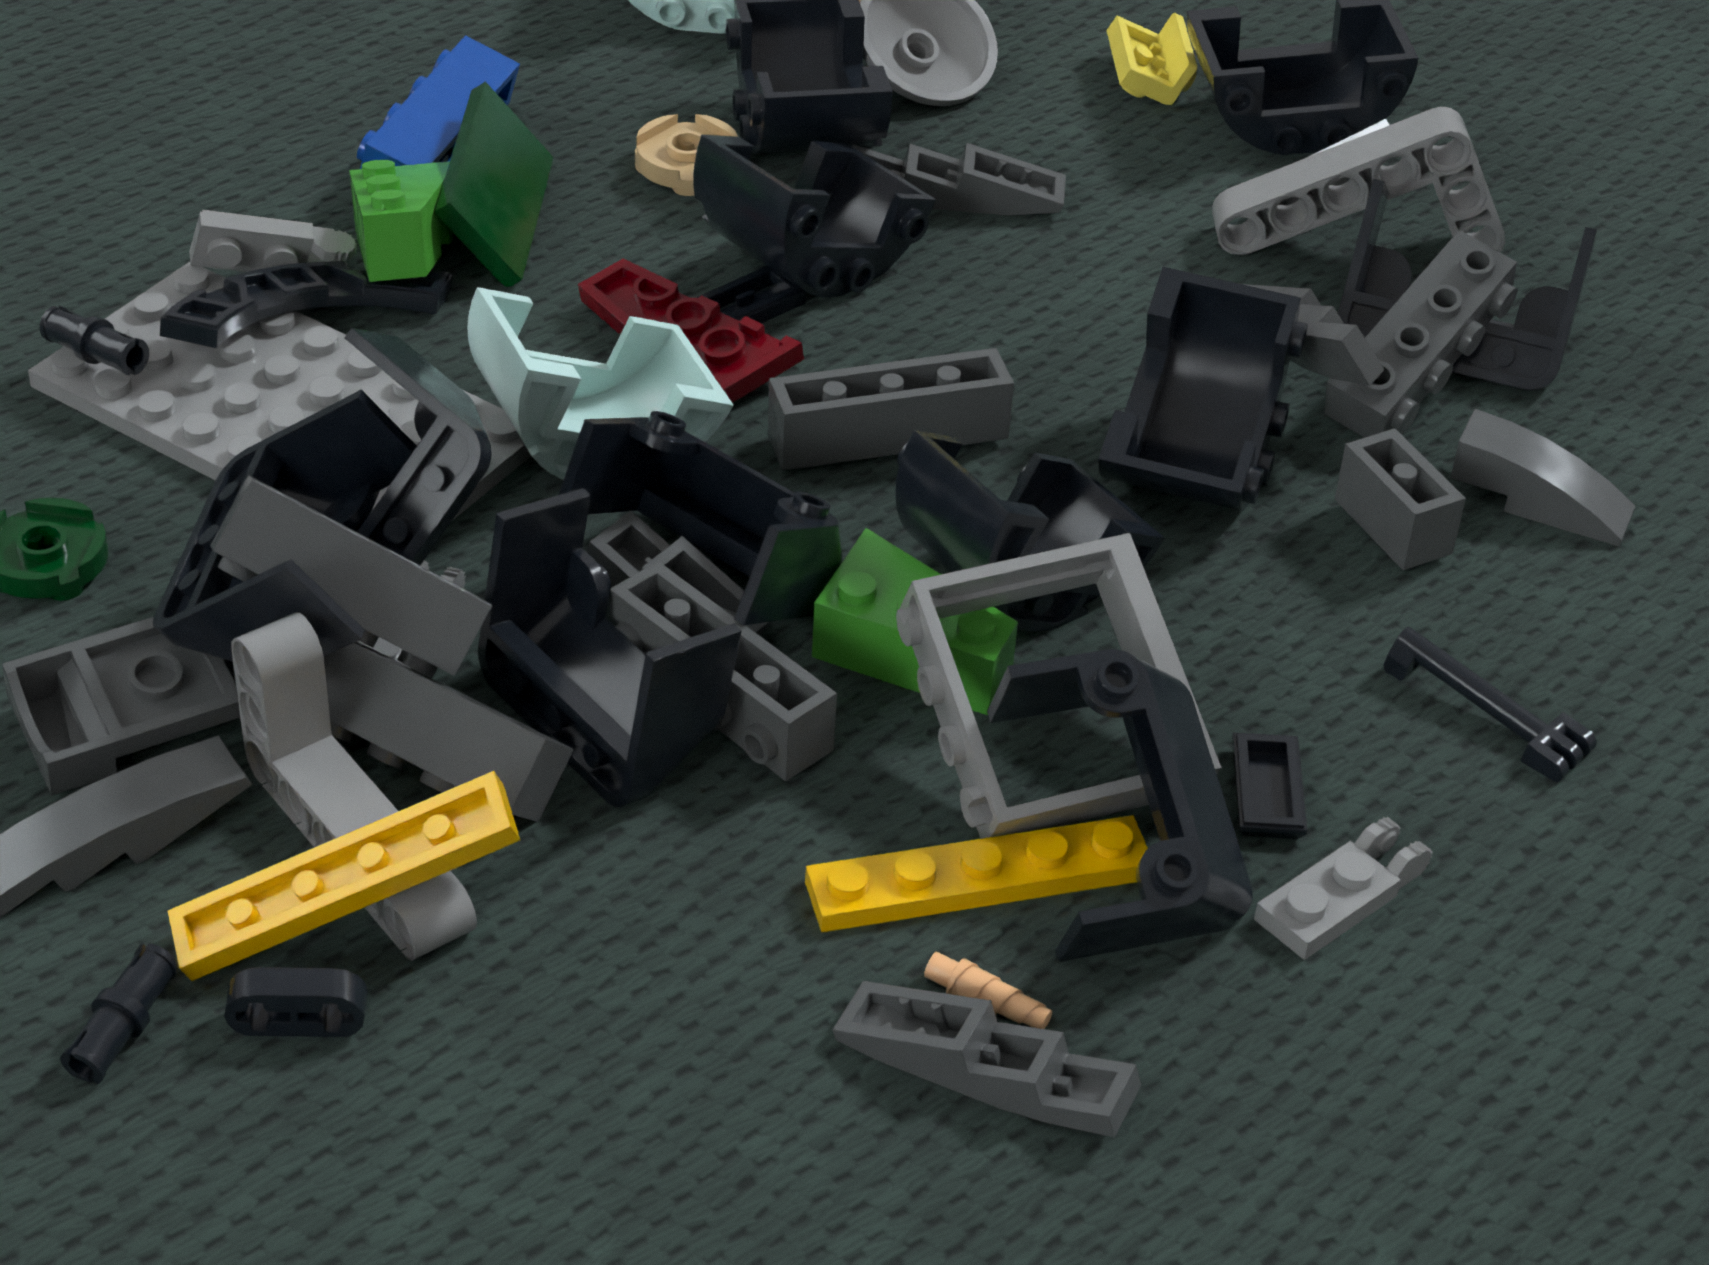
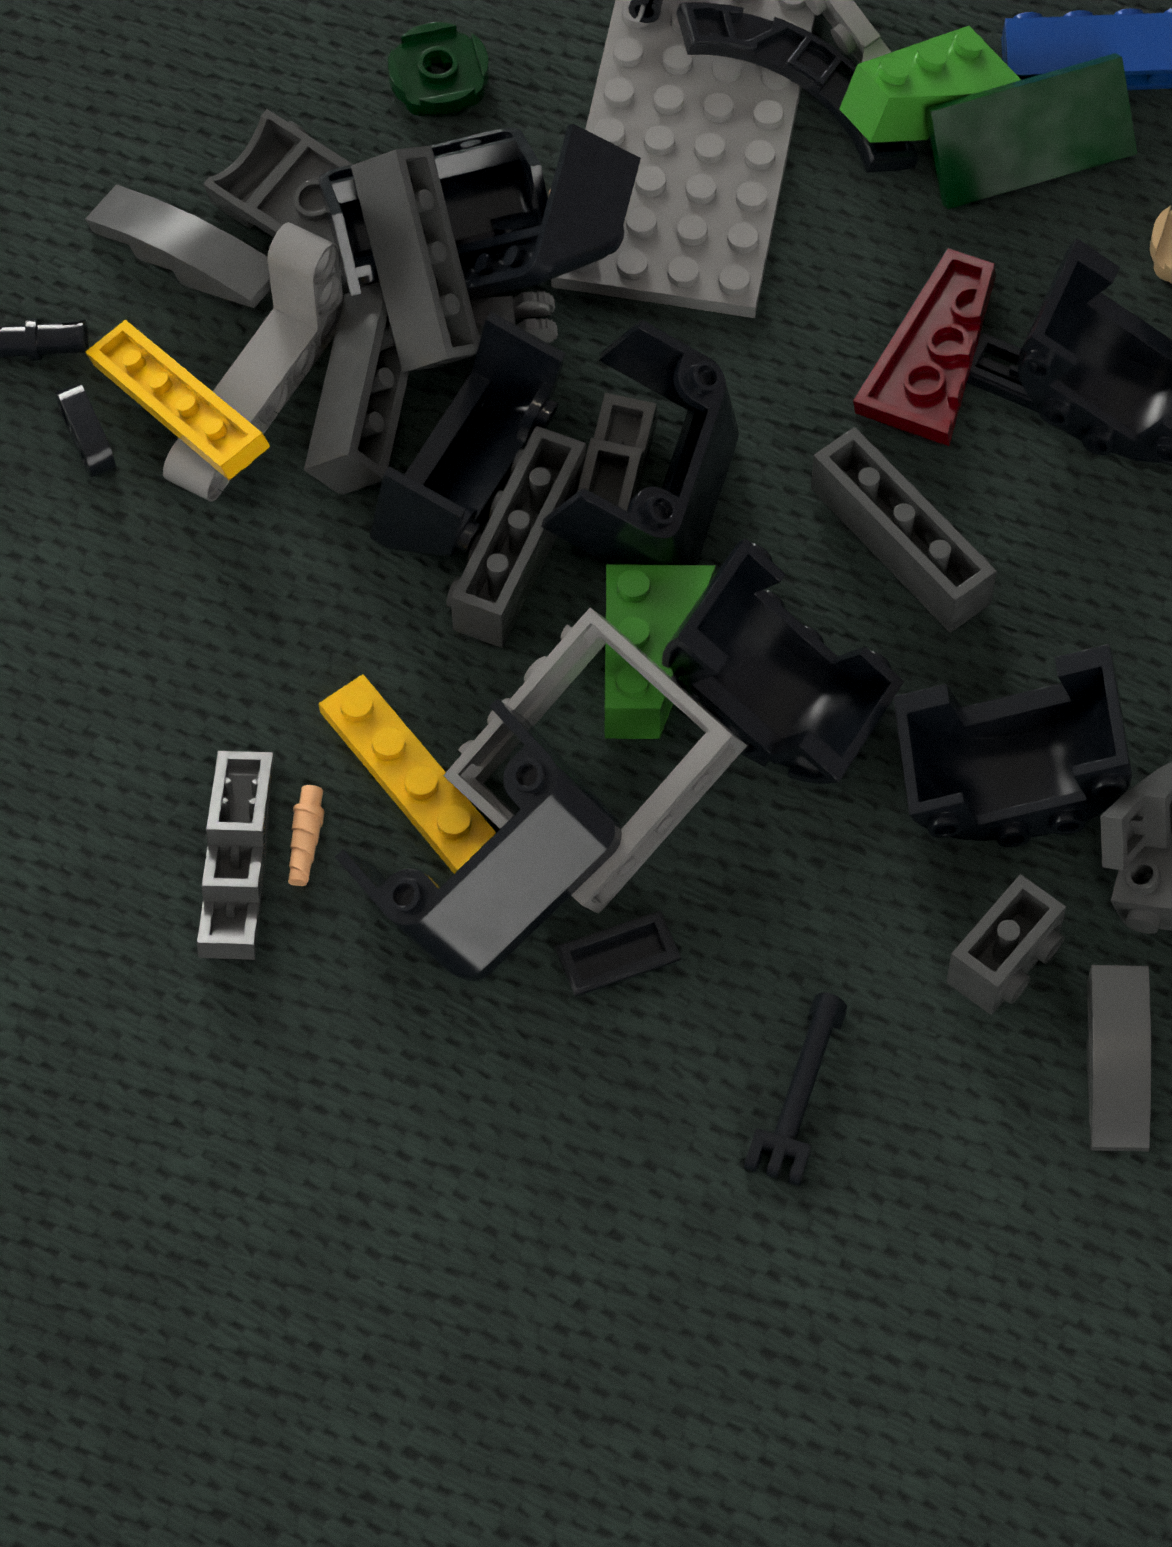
camera: 70 degrees right, 20 degrees up
(554, 394) = (771, 317): light aqua cylinder -> none
(1341, 889) = (527, 1038): light grey hinge -> none

